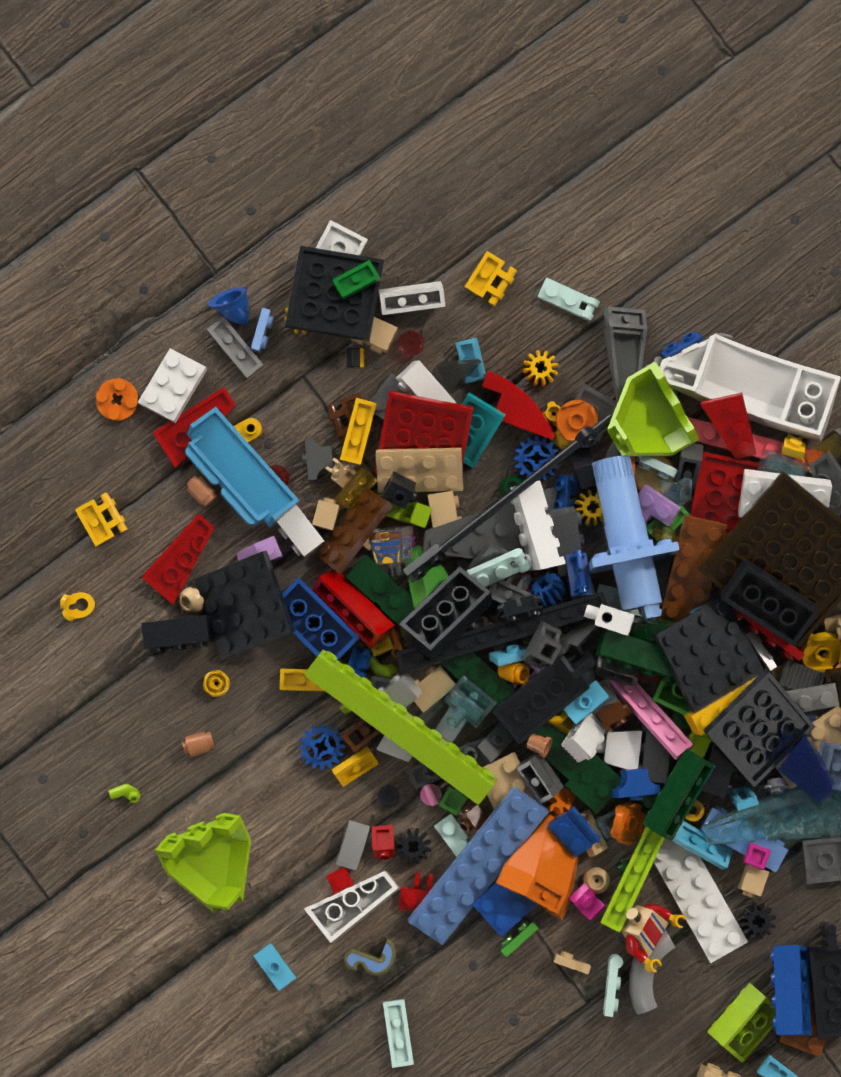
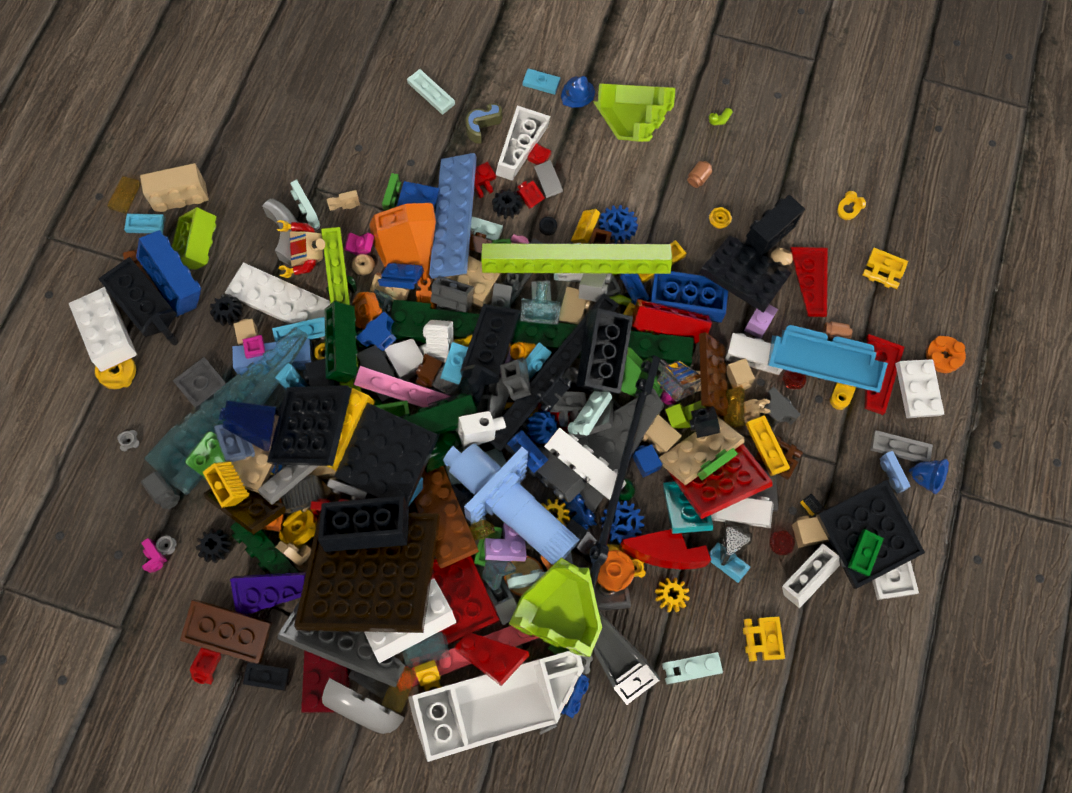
camera: 140 degrees right, 15 degrees down
(247, 926) = (577, 92): none -> blue piece
(413, 444) = (722, 458): none -> bright green plate
(472, 497) = (647, 460): none -> blue brick
(539, 744) = (468, 313): nougat piece -> none
(776, 785) = (271, 401): light grey plate -> none

